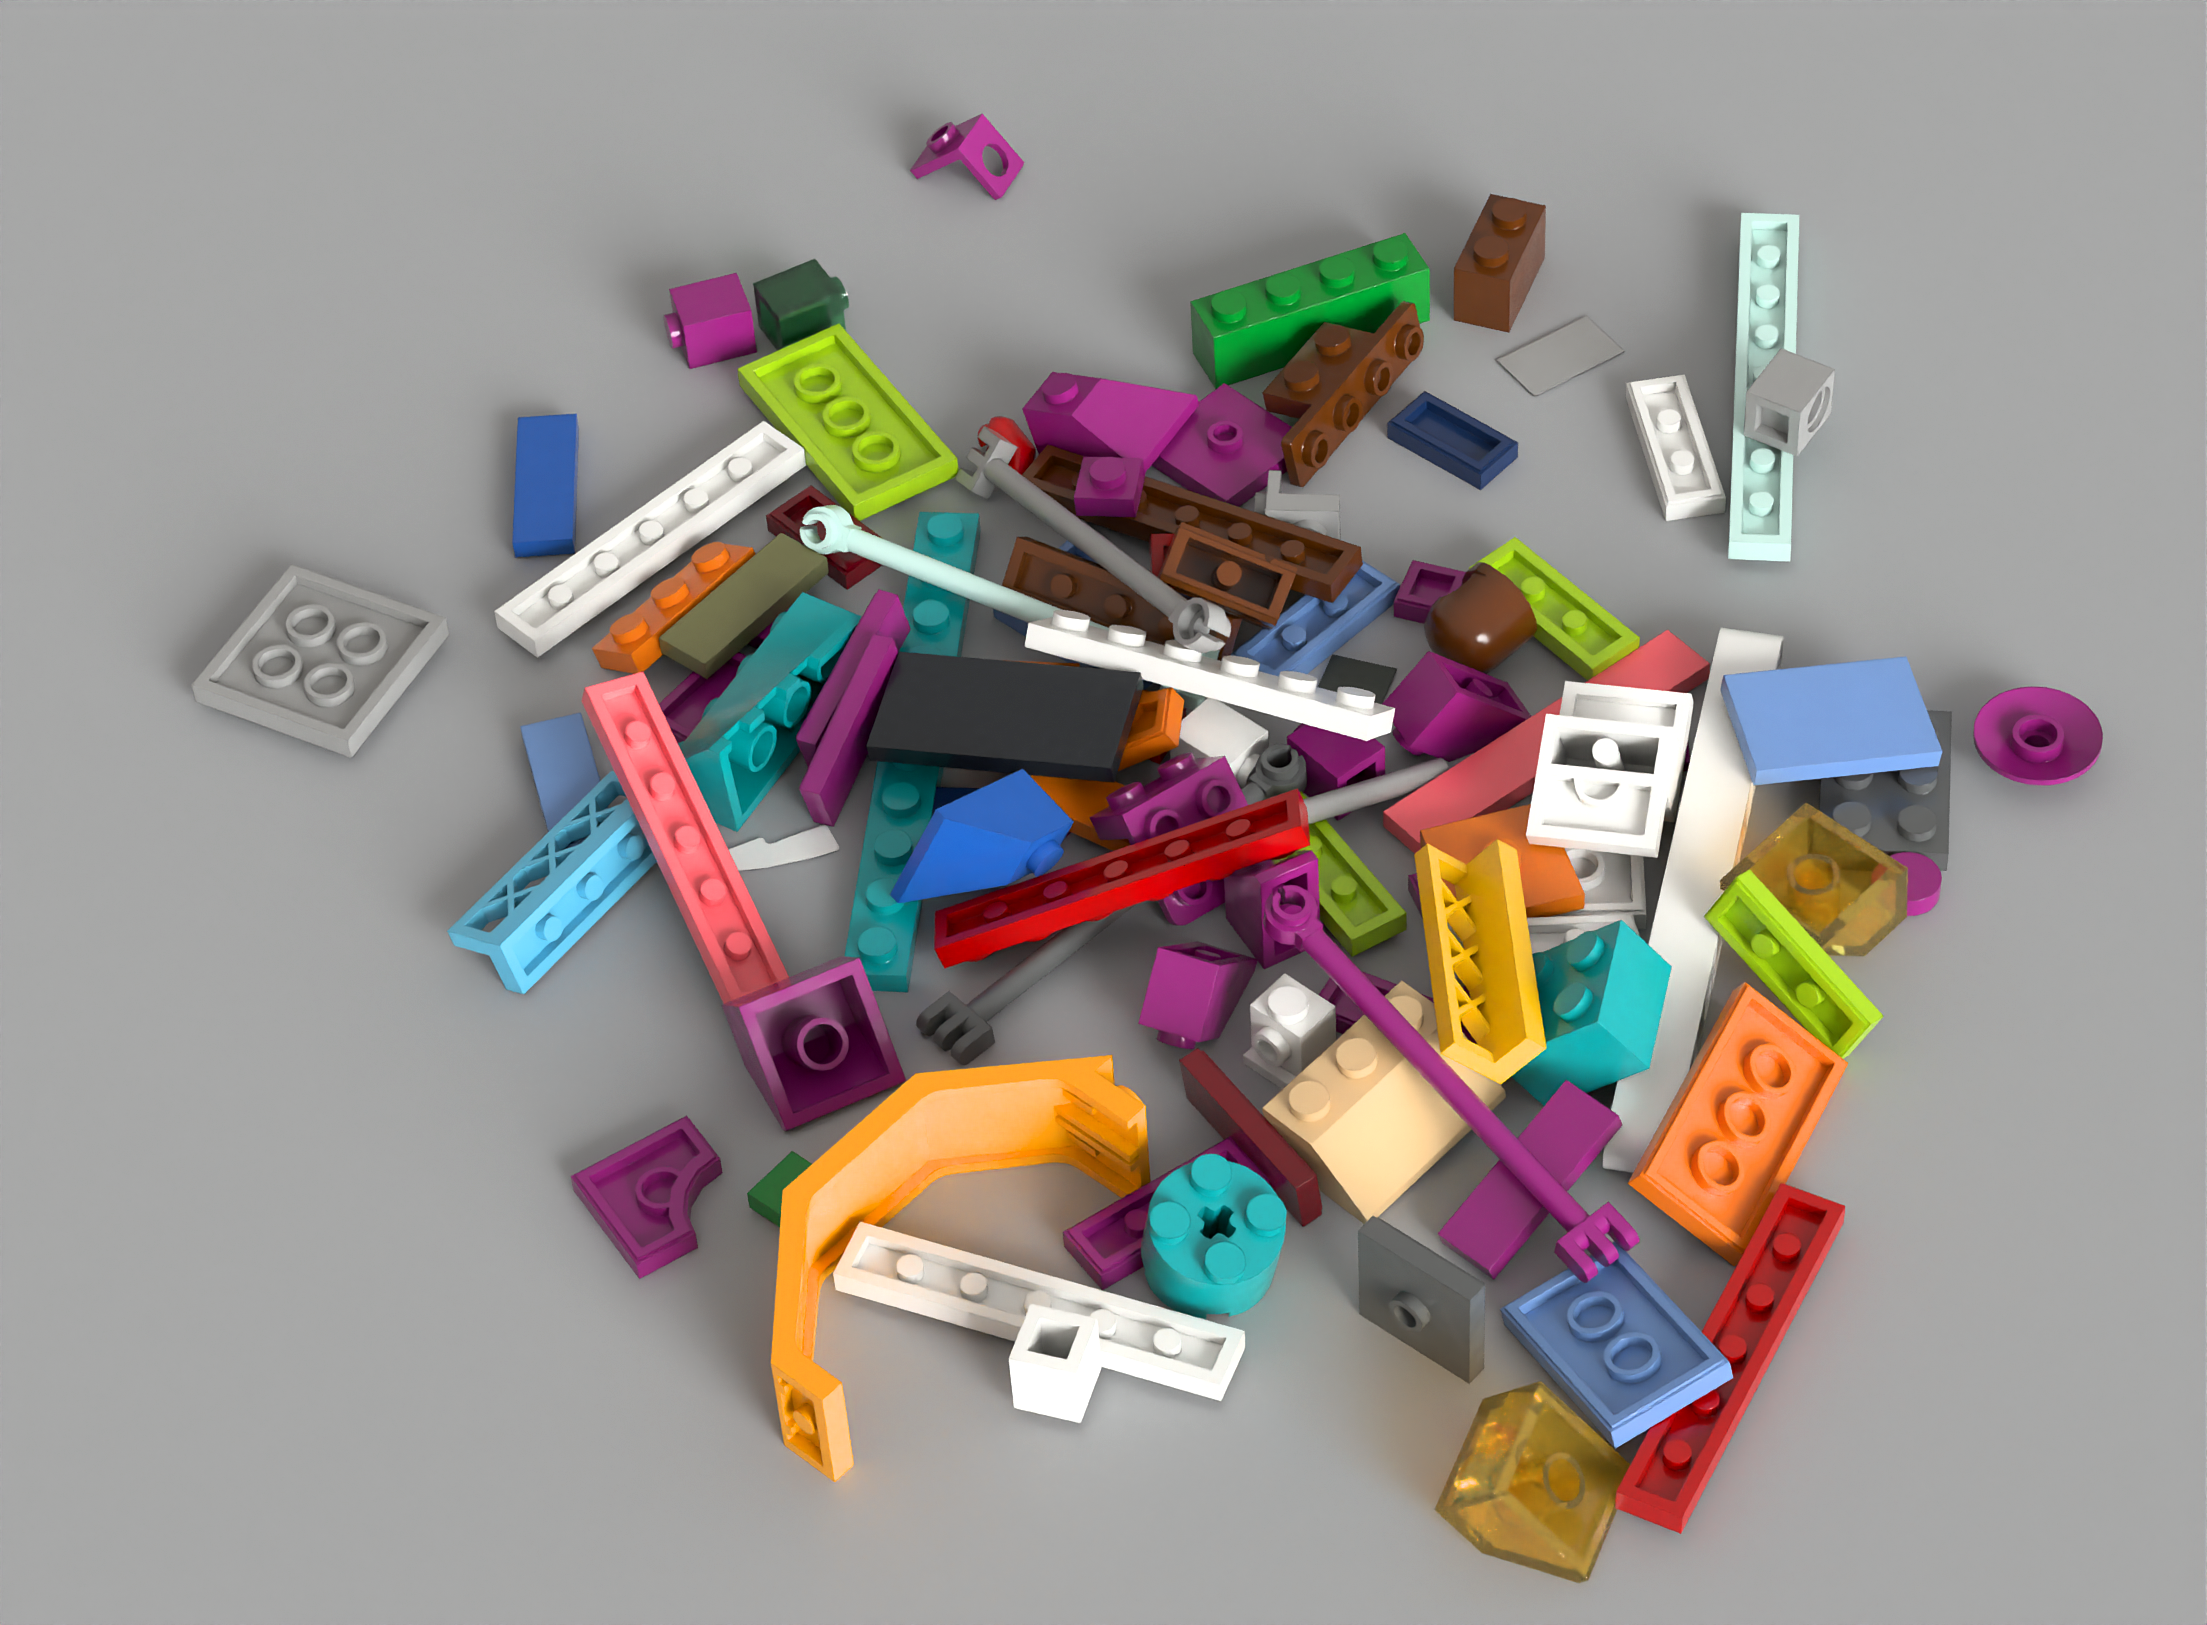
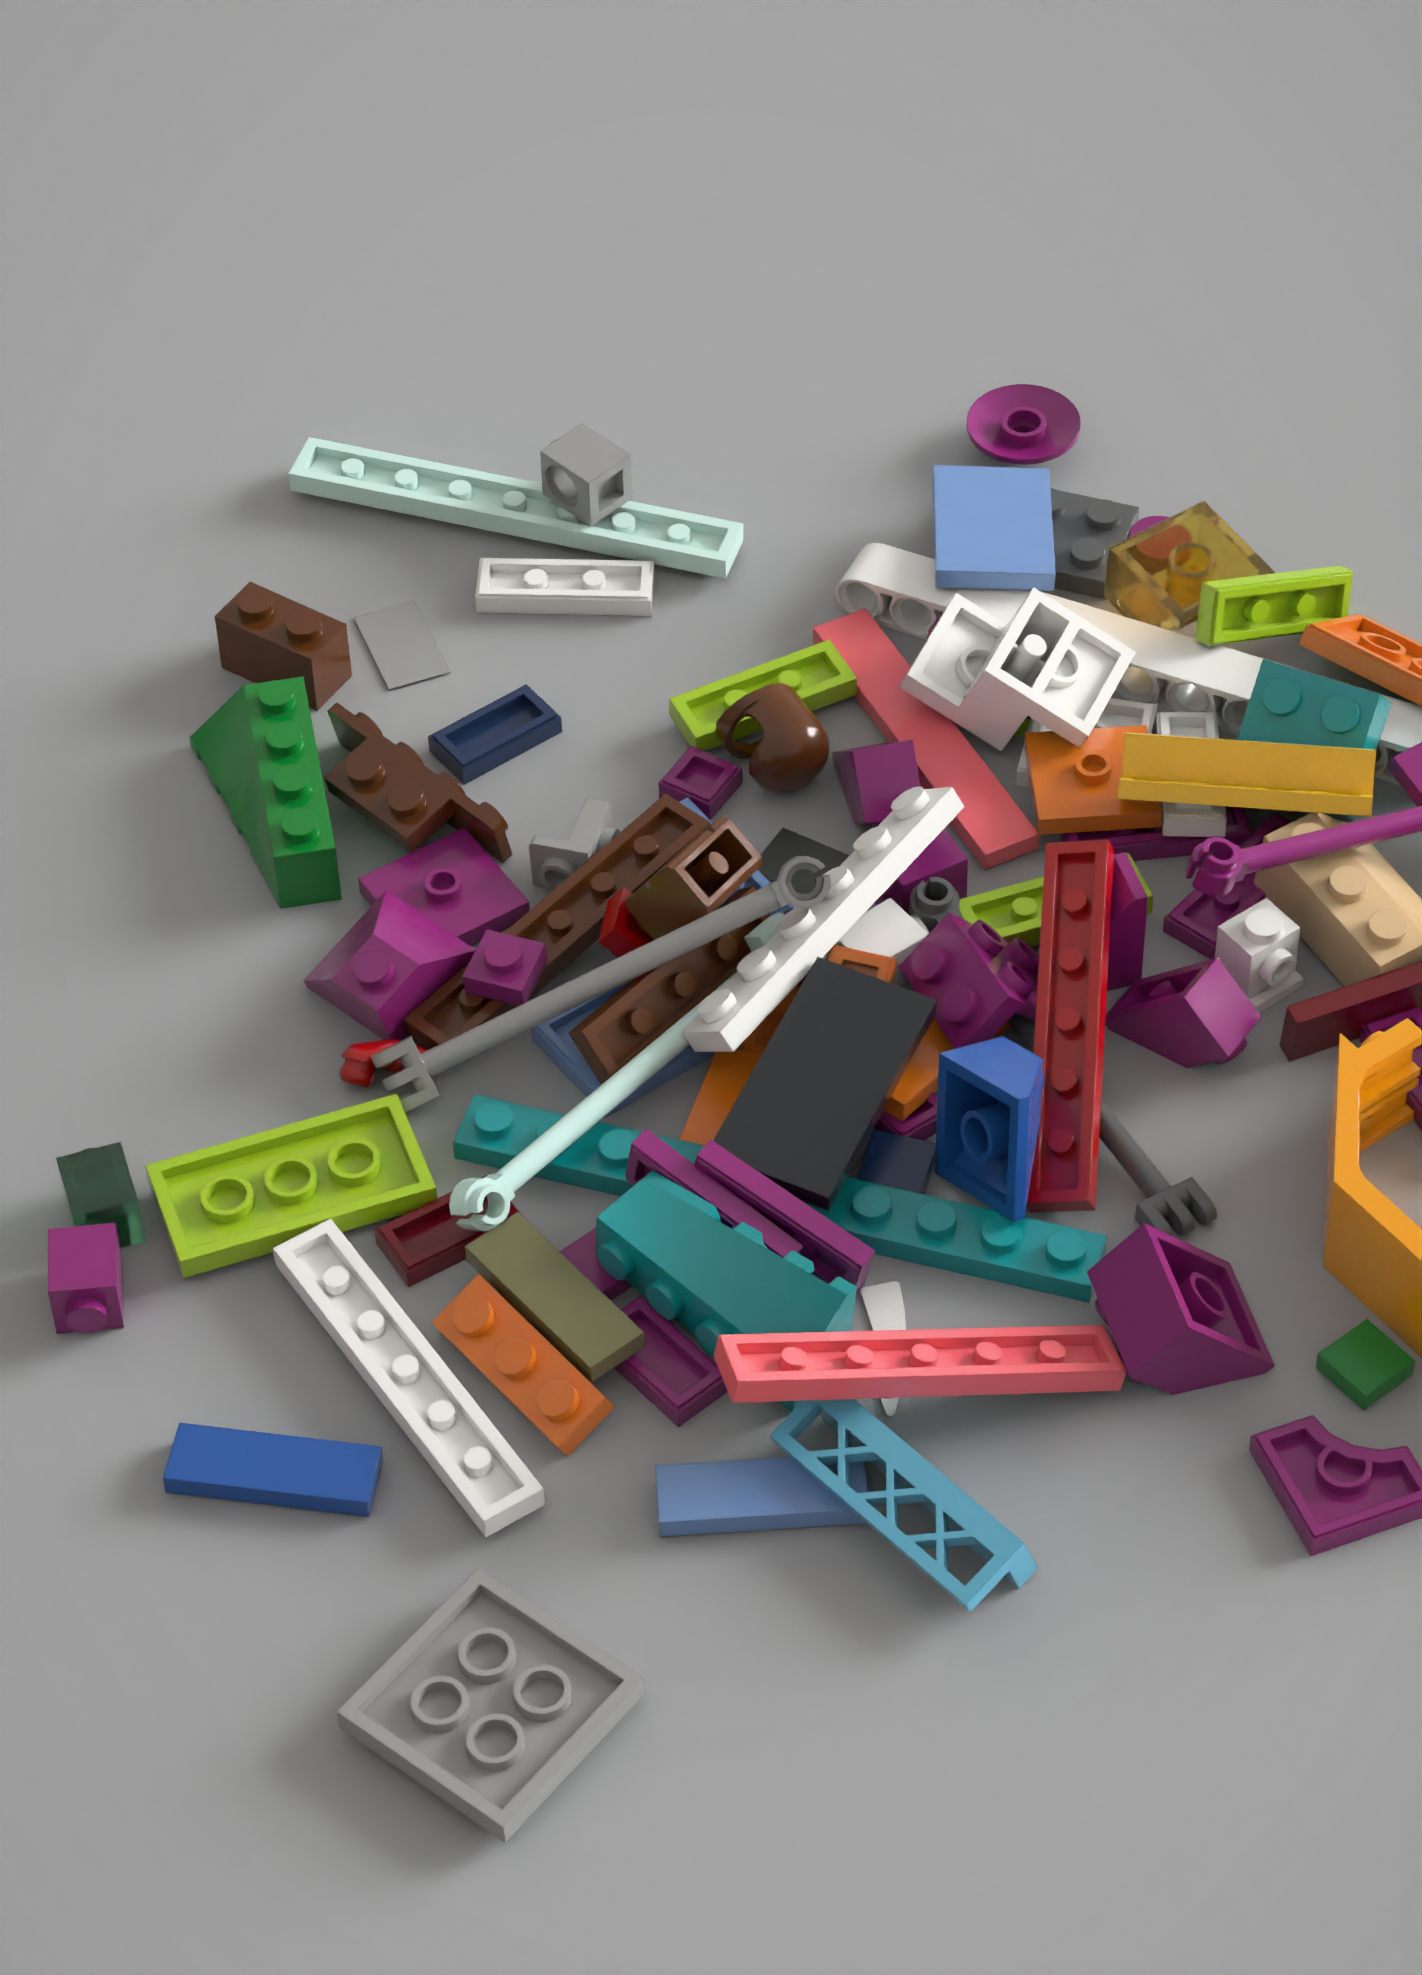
camera: 80 degrees left, 0 degrees up
(1373, 790) = (983, 871): light grey bar -> none

